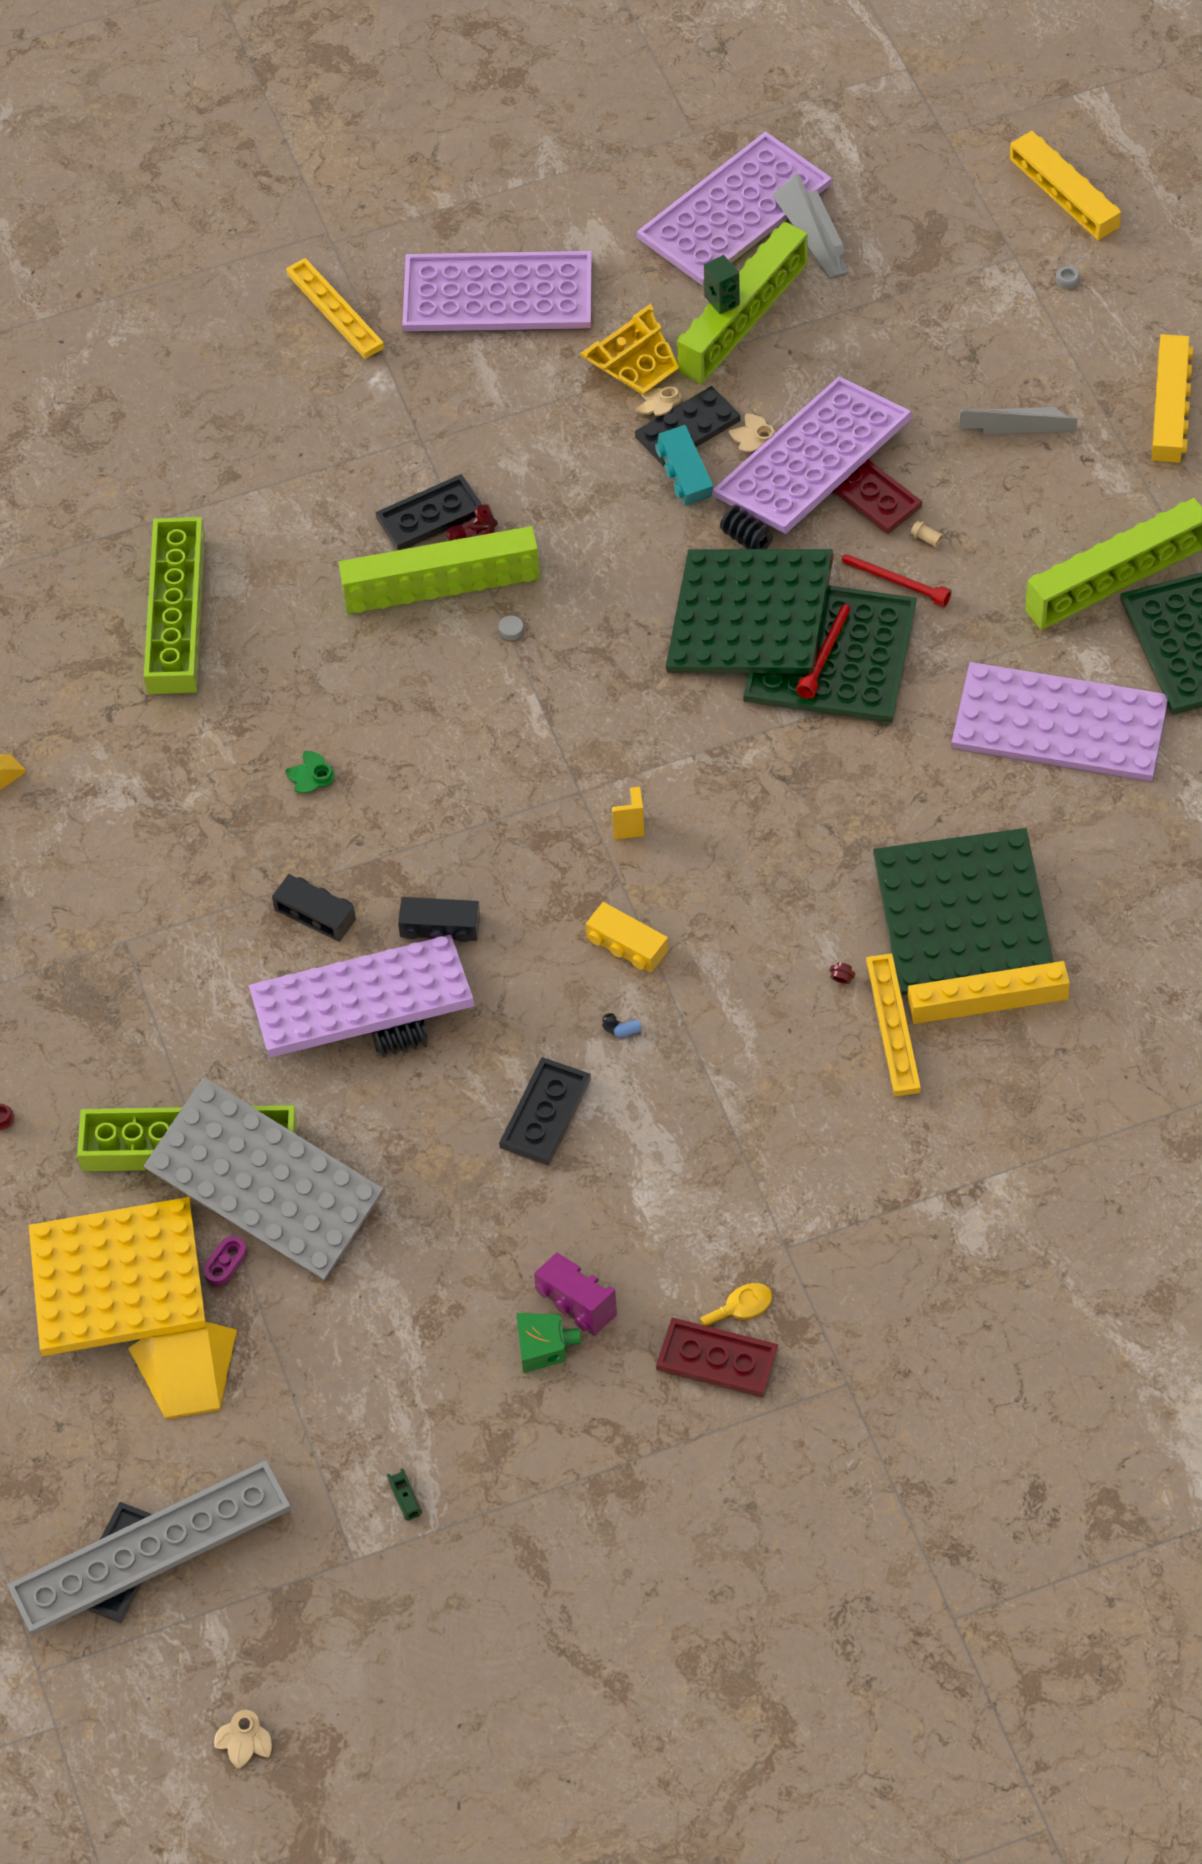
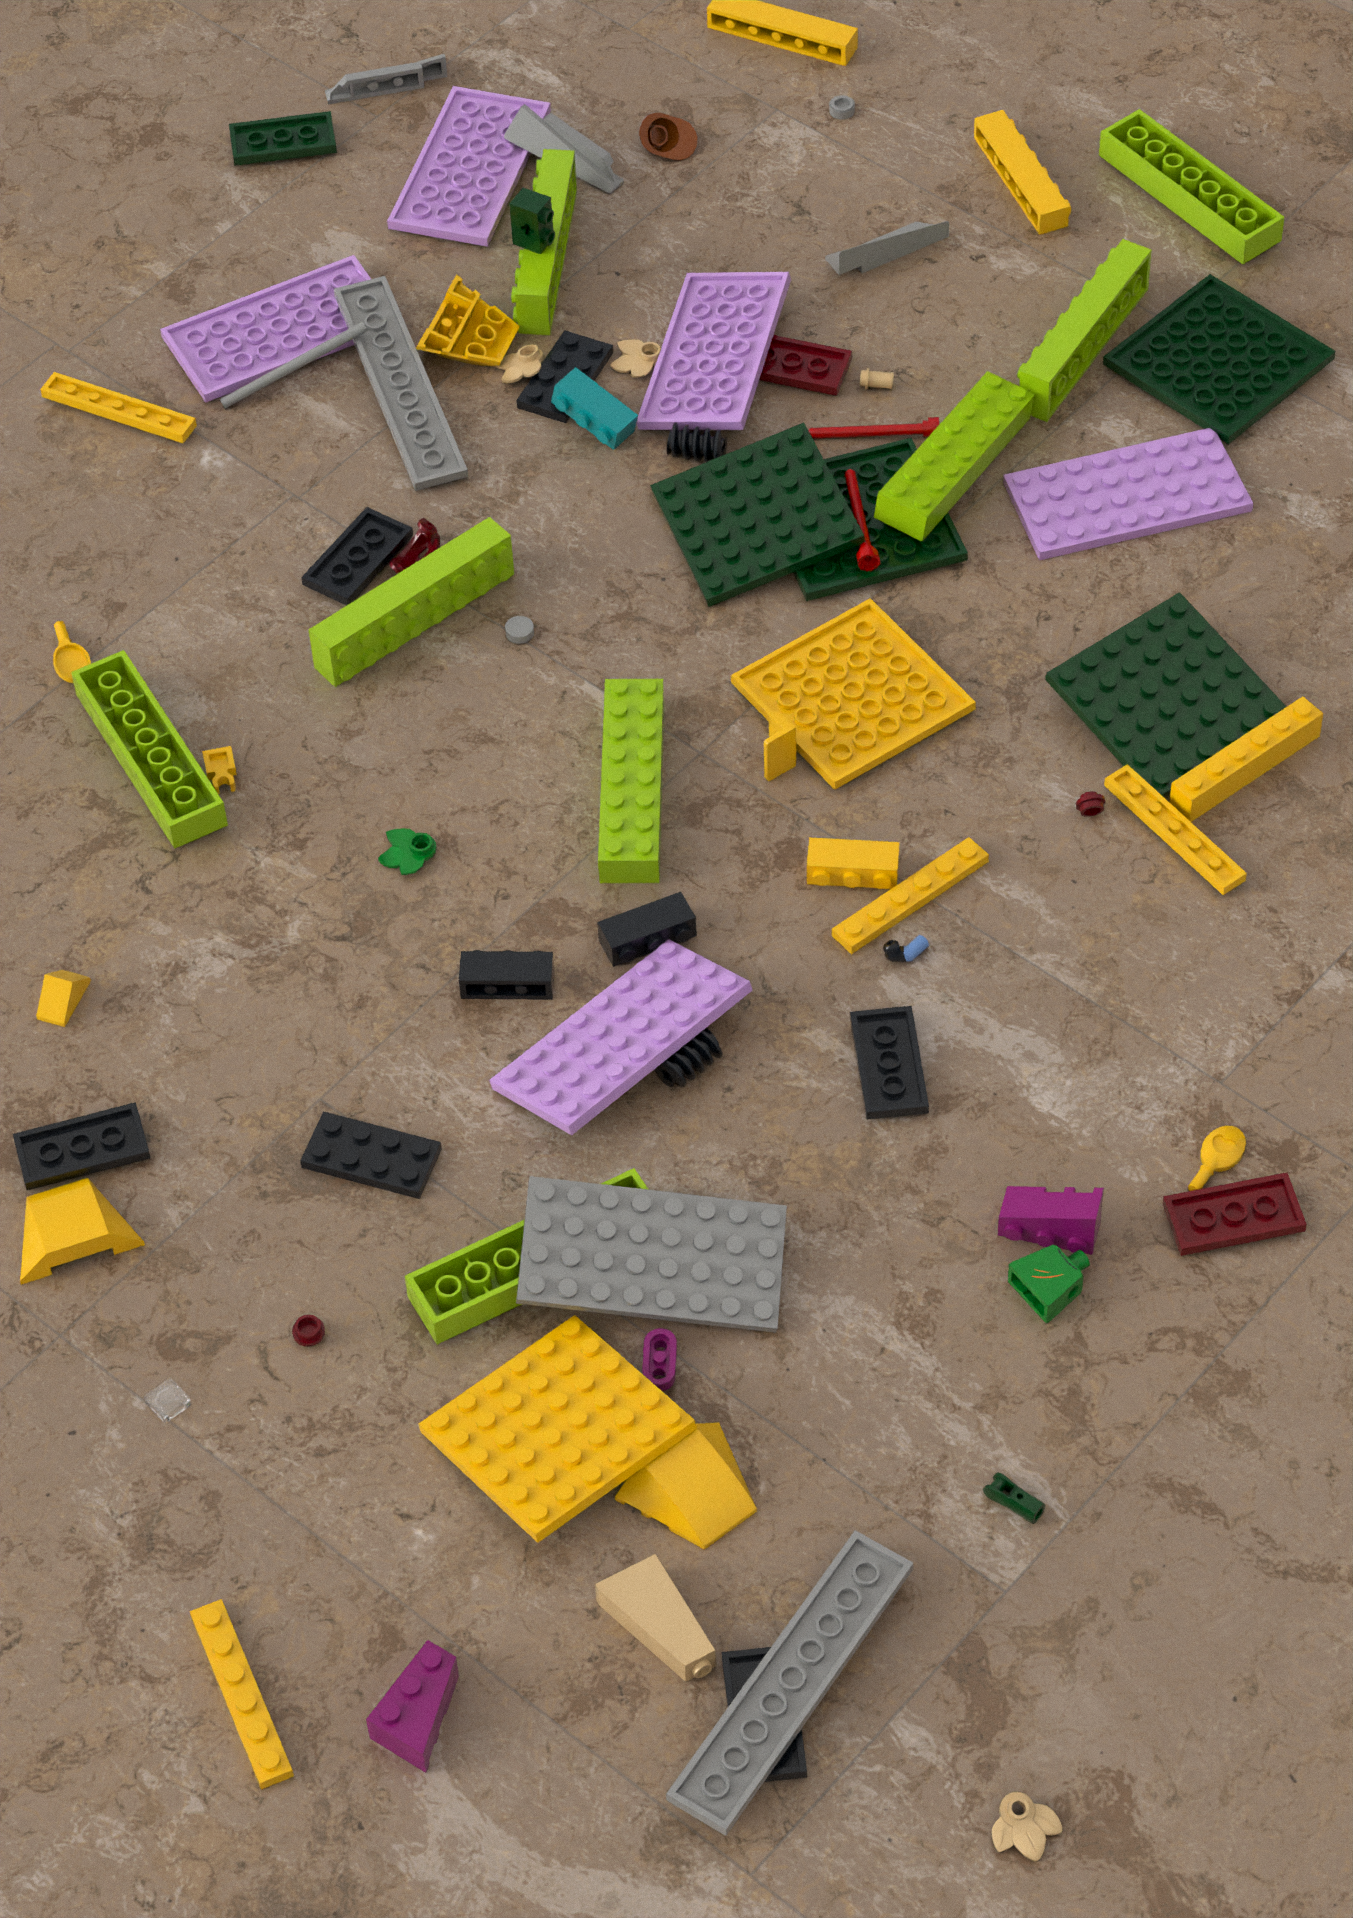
camera: 30 degrees left, 5 degrees down
(96, 1451) = (657, 1615): none -> tan slope
(130, 1003) = (371, 1155): none -> black plate
(171, 502) = (68, 655): none -> yellow piece
(219, 641) = (220, 767): none -> yellow plate
(482, 328) = (293, 365): none -> light grey piece
(507, 792) = (631, 781): none -> lime brick
(553, 378) = (401, 384): none -> light grey plate
(605, 123) = (282, 138): none -> dark green plate
(655, 983) = (910, 895): none -> yellow plate
(721, 105) = (387, 80): none -> light grey wedge
(724, 796) = (854, 692): none -> yellow plate
(903, 247) = (668, 136): none -> dark orange piece
(934, 629) = (954, 456): none -> lime brick

